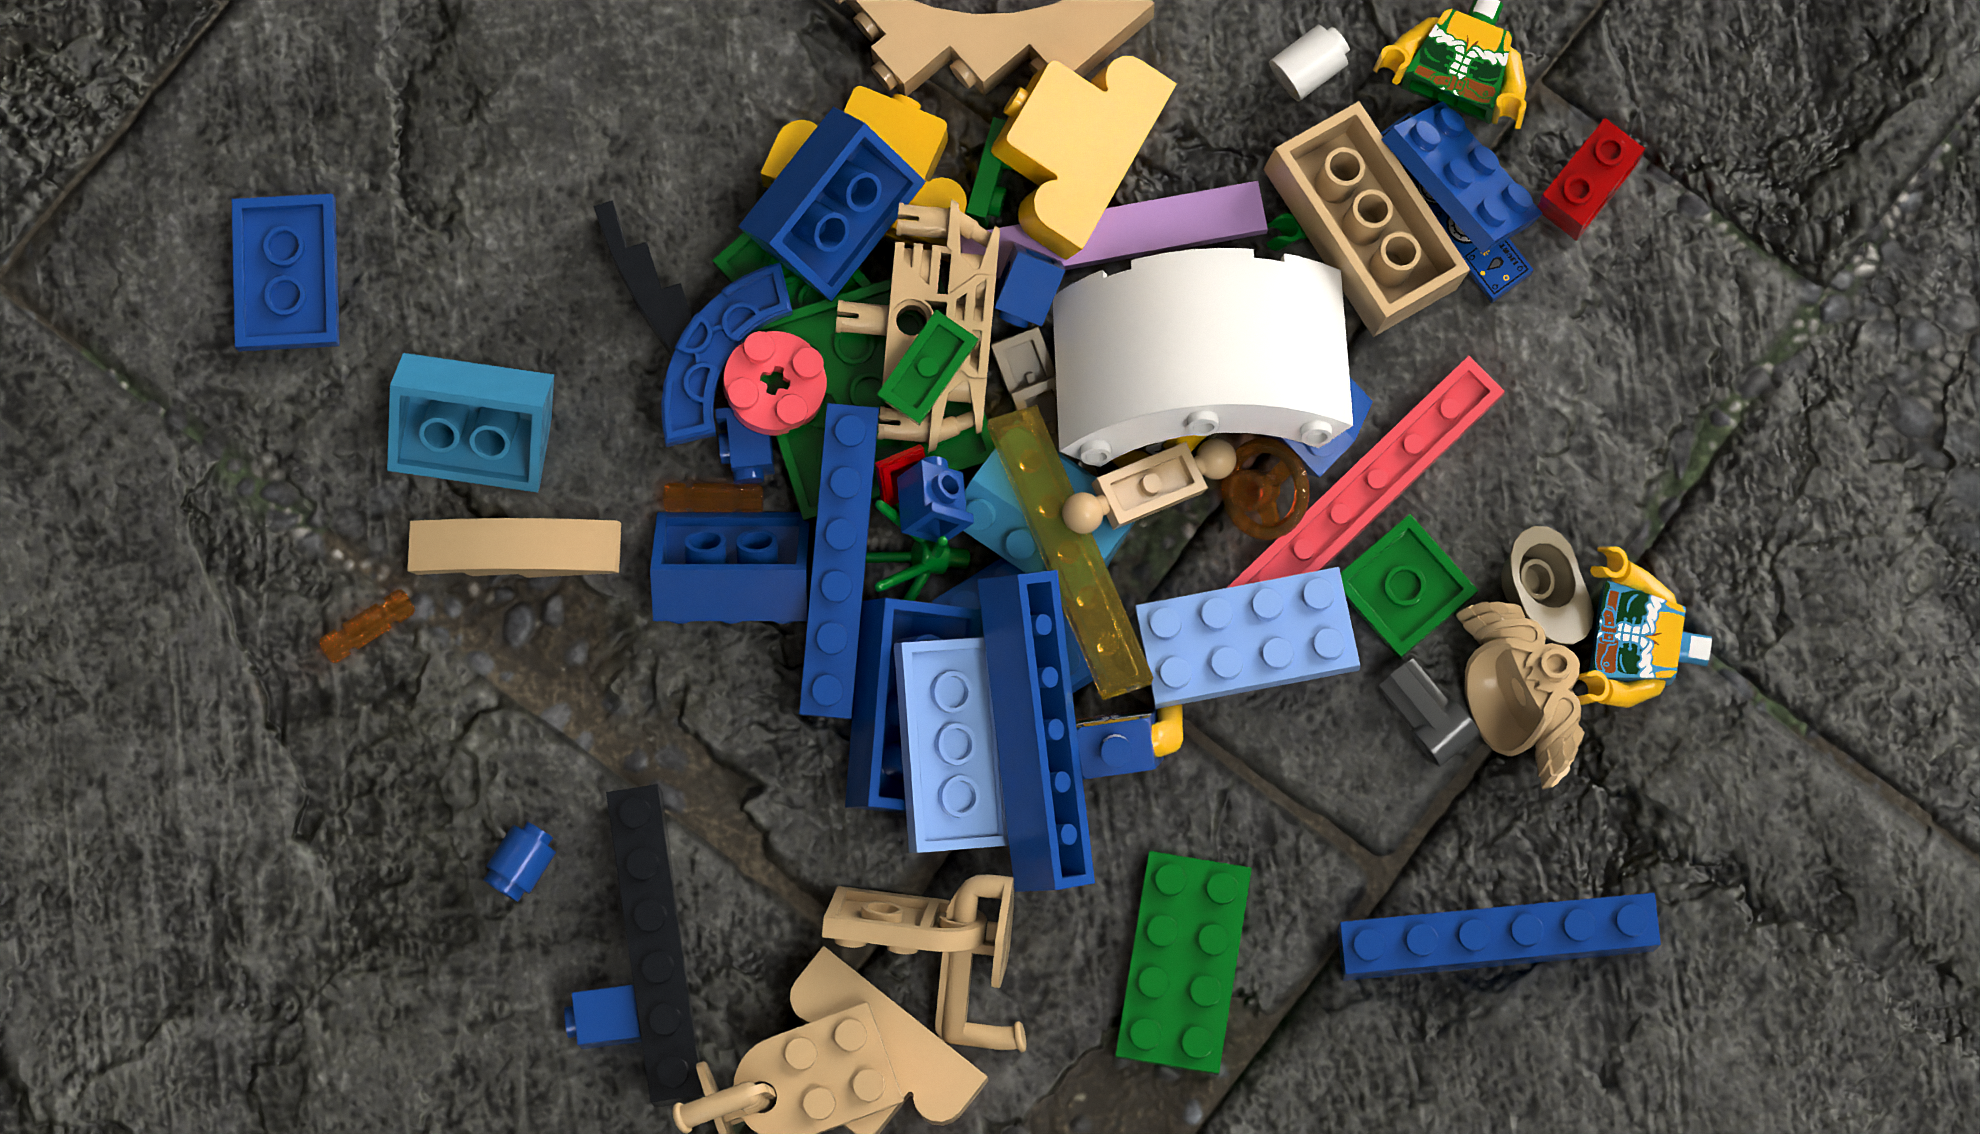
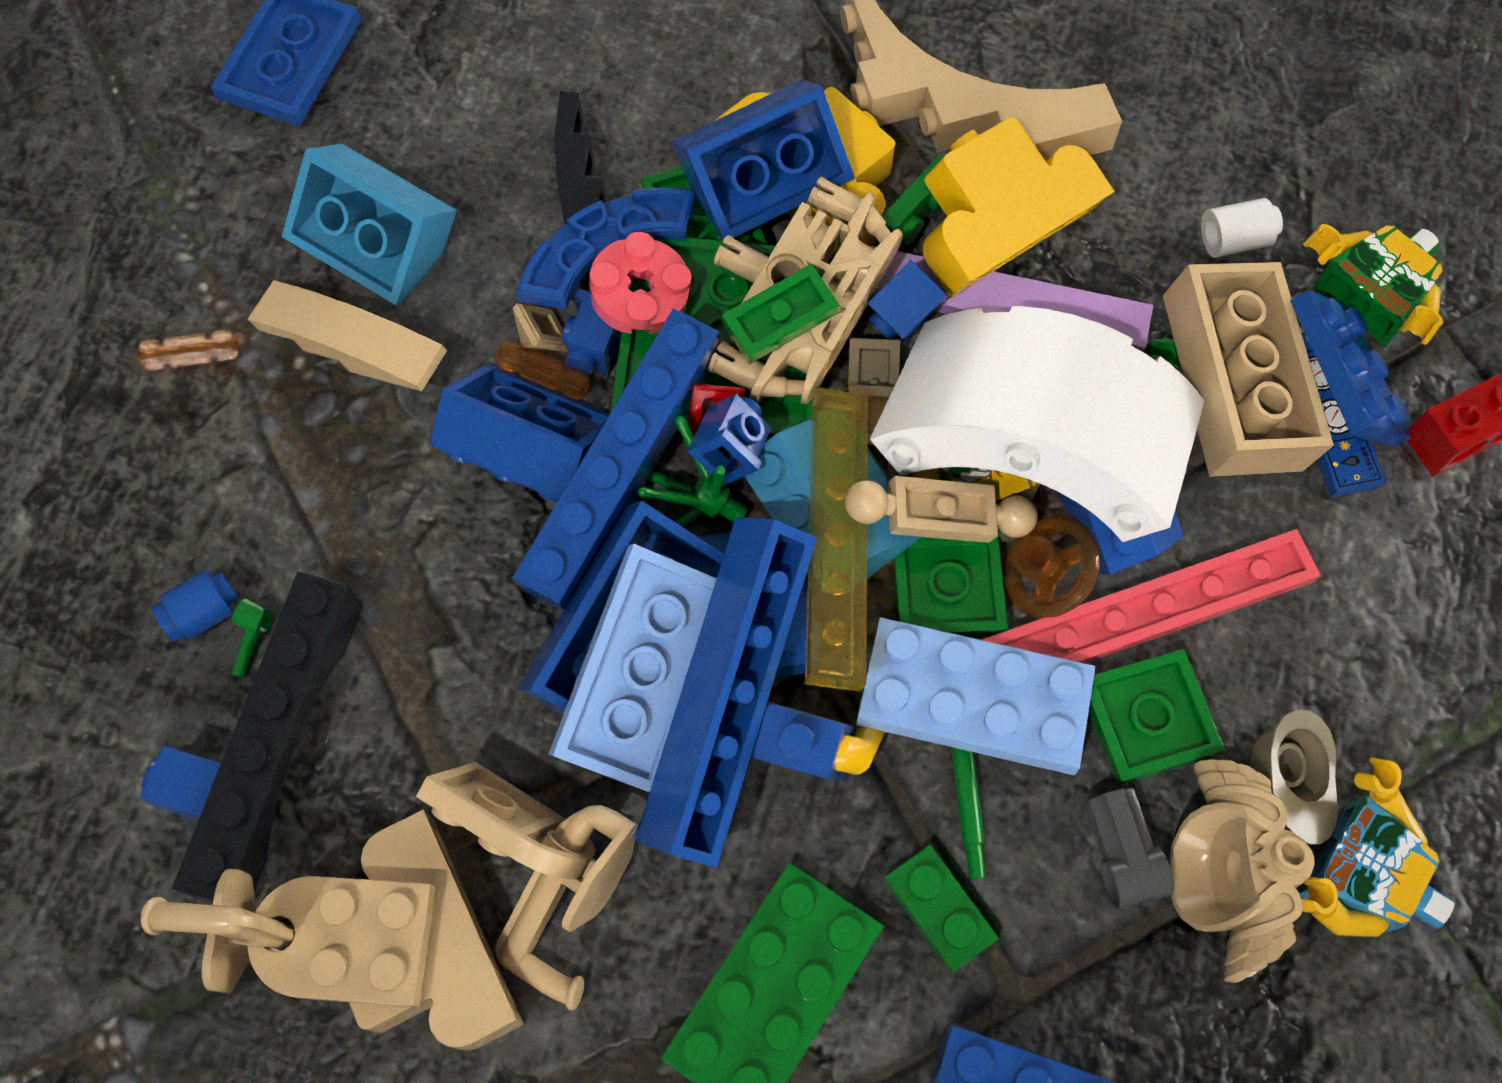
camera: 20 degrees right, 10 degrees down
(577, 850) = (256, 623): none -> green hand
(692, 461) = (538, 328): none -> tan slope
(1185, 548) = (951, 587): none -> green plate
(1283, 738) = (969, 811): none -> green piece
(1292, 832) = (940, 909): none -> green plate

